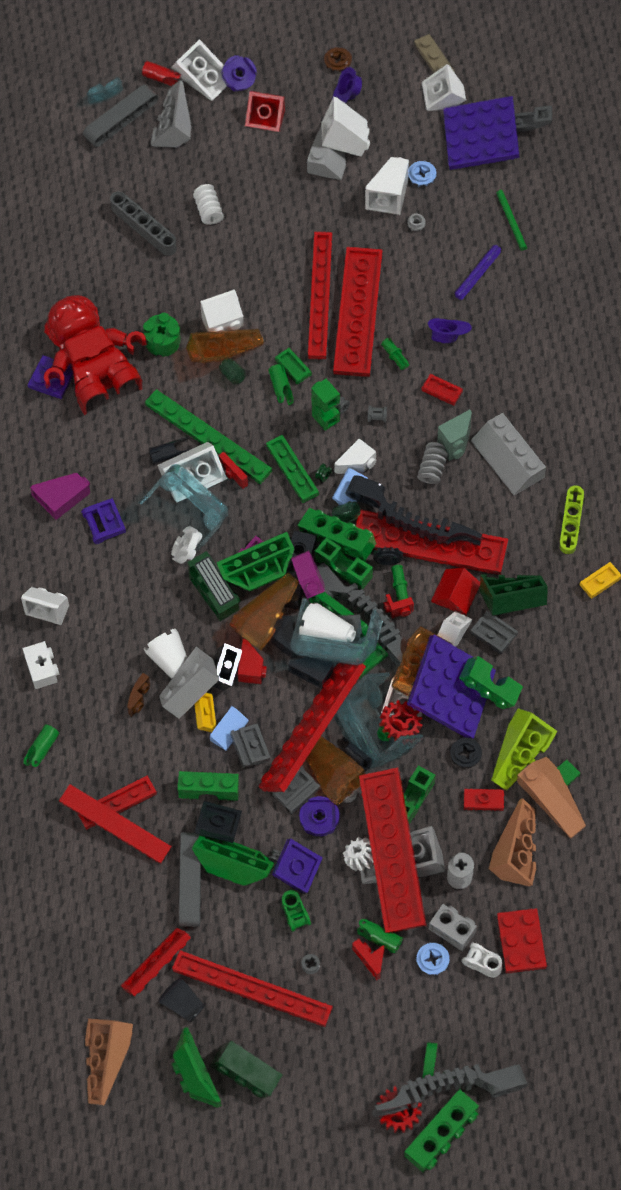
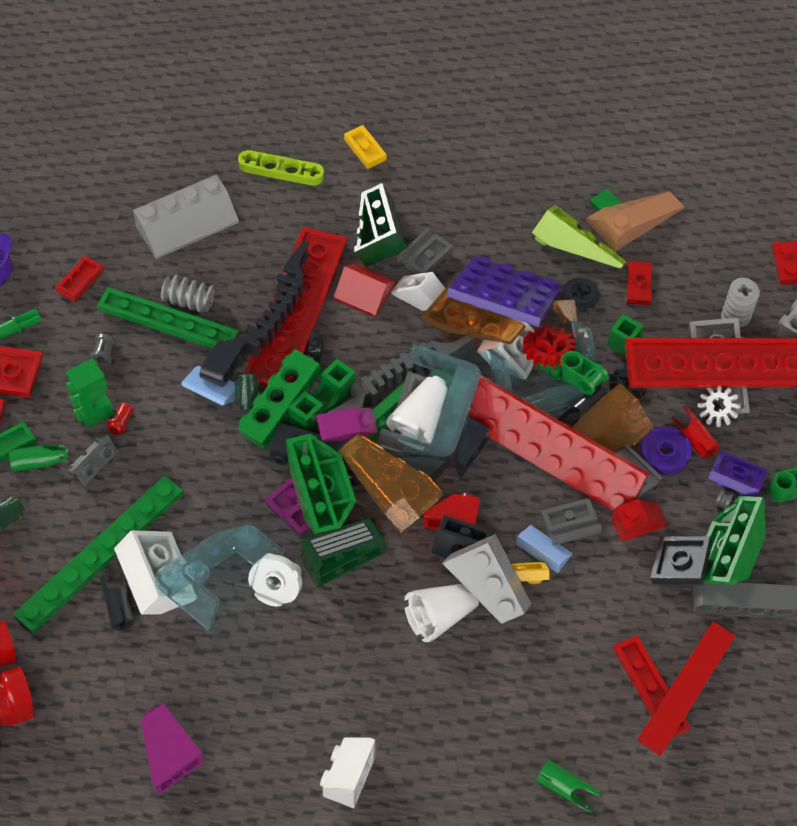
camera: 90 degrees left, 5 degrees down
(41, 675) = (431, 791): white brick -> none
(109, 517) = (216, 683): dark purple plate -> none
(136, 699) = (502, 657): reddish brown slope -> none
(222, 785) = (630, 571): green arch -> none
(233, 471) = (165, 519): red plate -> none
(255, 795) = (637, 519): none -> red slope
(279, 420) = (95, 459): none -> dark grey hinge
(292, 469) = (168, 451): green plate -> none
(317, 433) = (117, 423): none -> red pin
(323, 472) = (181, 415): dark green bush -> none
(336, 839) = (698, 436): none -> red piece
(357, 457) = (166, 375): white slope -> none
(369, 743) = (582, 372): none -> green piece
(399, 582) = (352, 343): green pin -> none
(399, 608) = (386, 350): red bracket -> none
(409, 454) = (164, 318): none -> green plate
(445, 739) = (566, 309): none -> clear orange tile
(455, 435) = (155, 259): sand green slope -> none
(477, 676) = (500, 254): green arch -> none
(513, 852) = (716, 258): nougat wedge -> none

